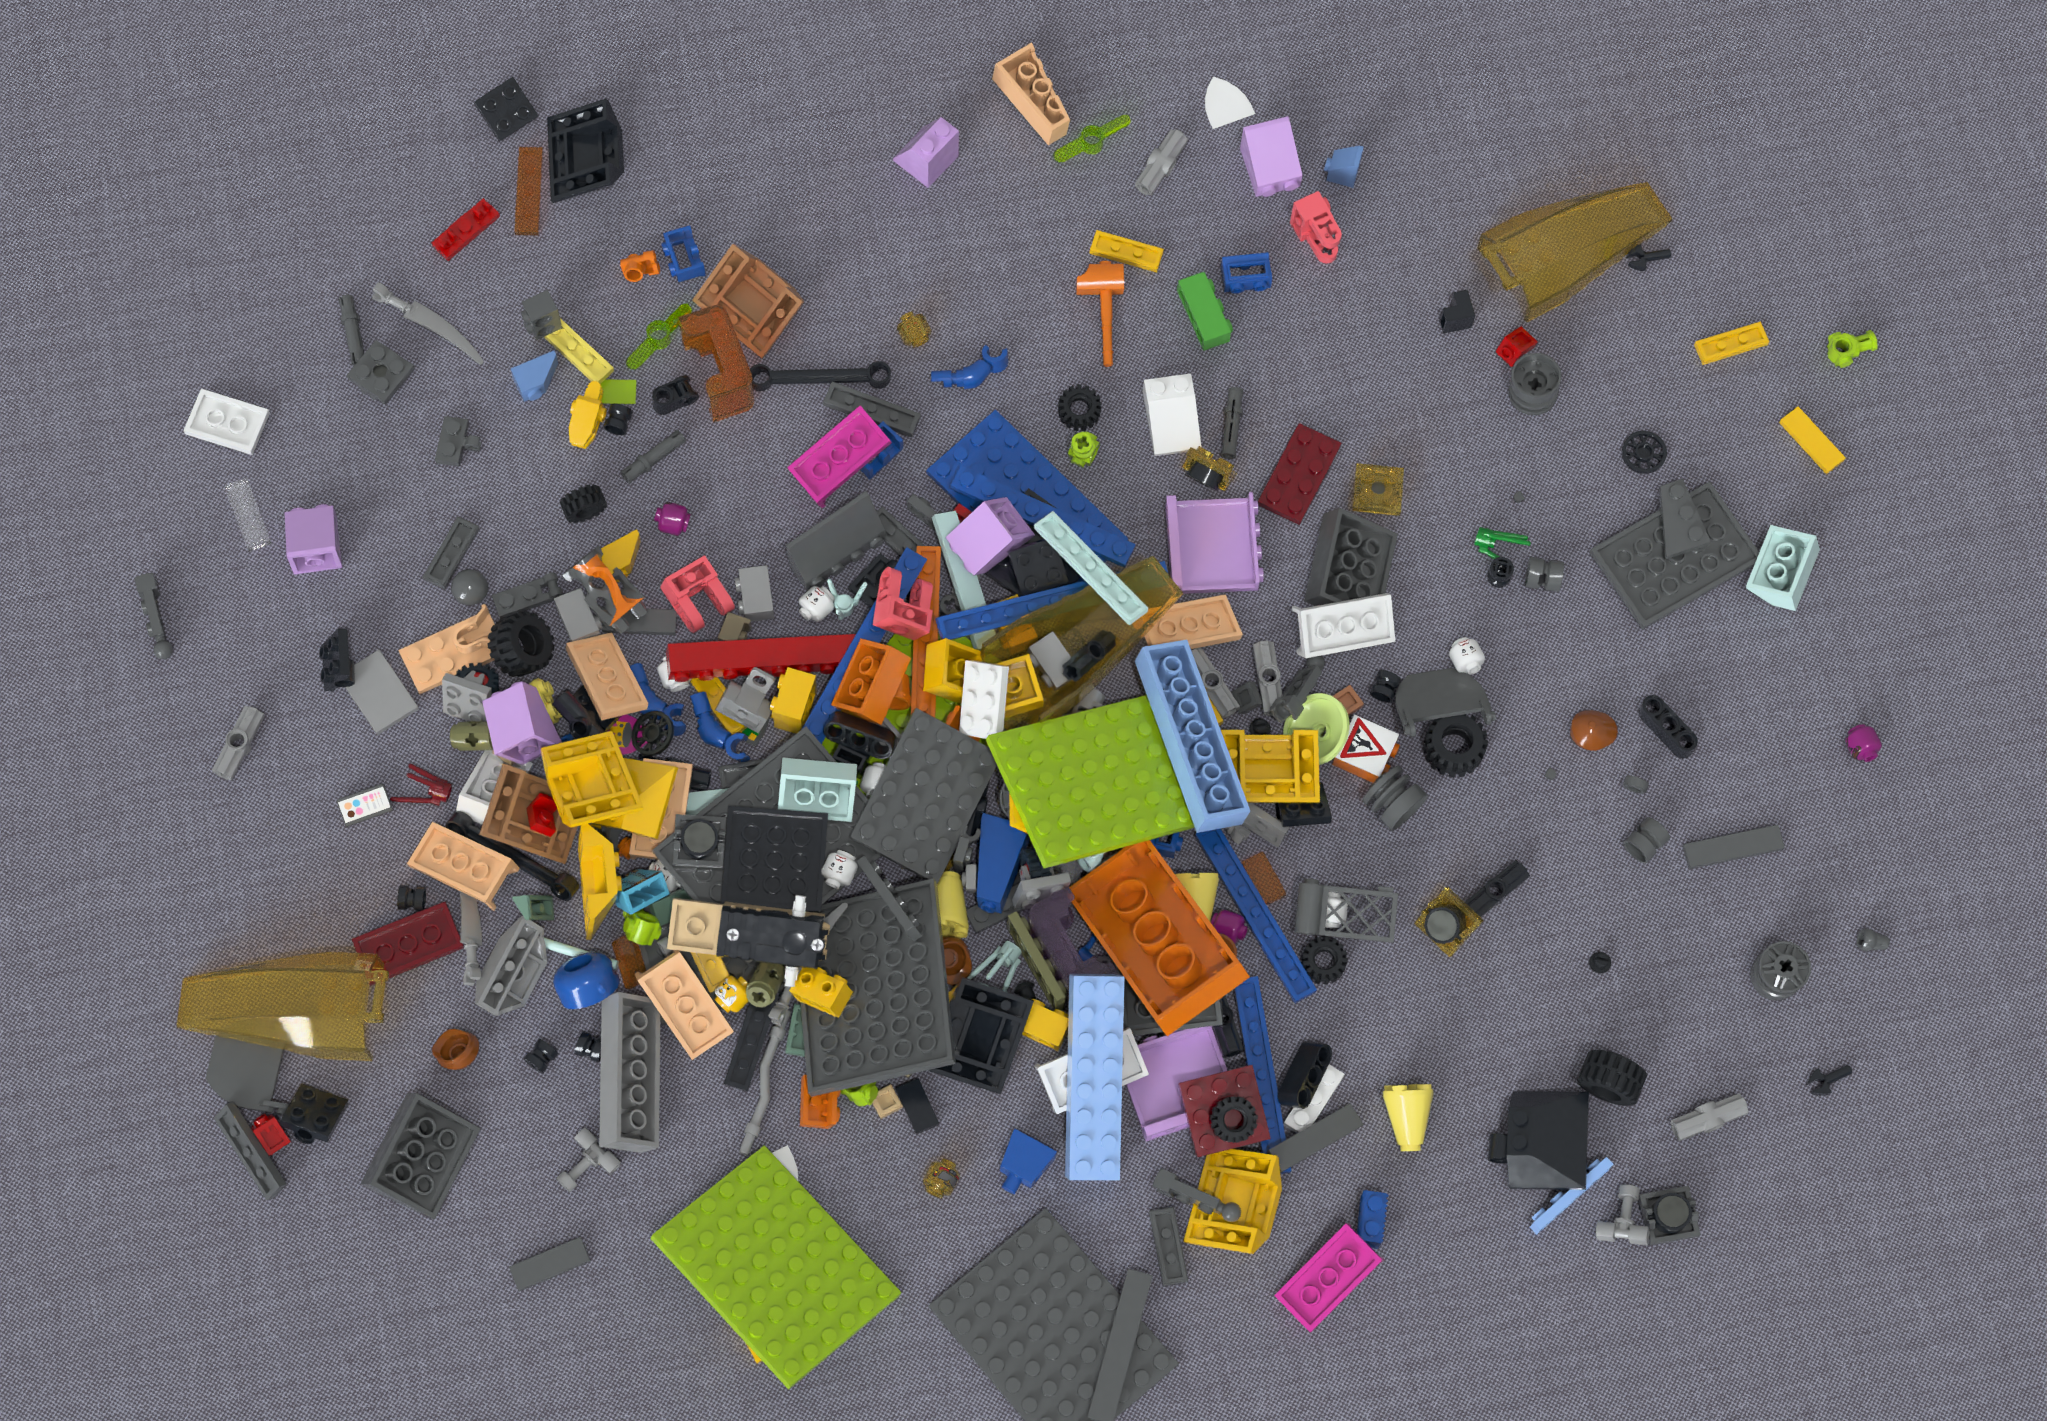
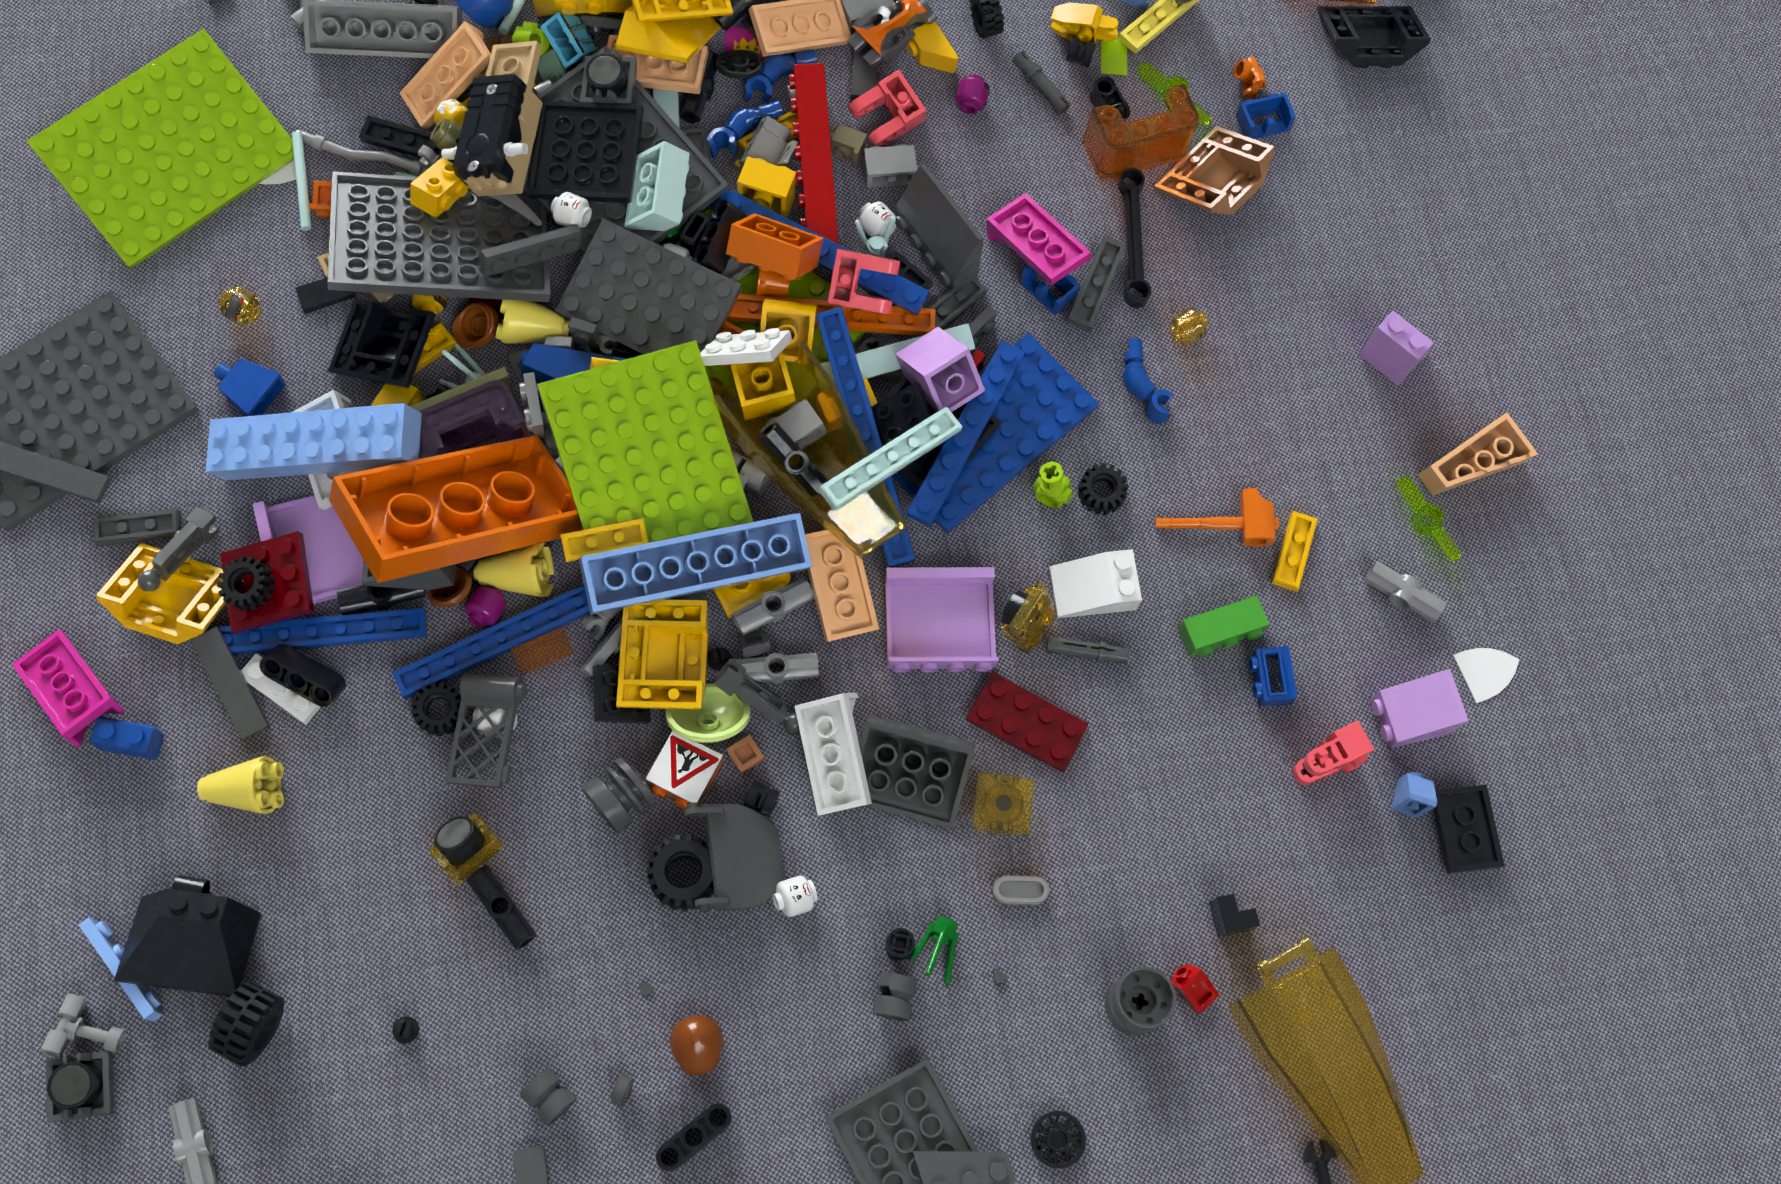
camera: 85 degrees right, 0 degrees up
(798, 1140) = (301, 180): none -> light aqua bar
(1176, 812) = (603, 539): none -> yellow tile
(1370, 126) = (1467, 829): none -> black plate
(1445, 480) = (1020, 890): none -> light grey tile

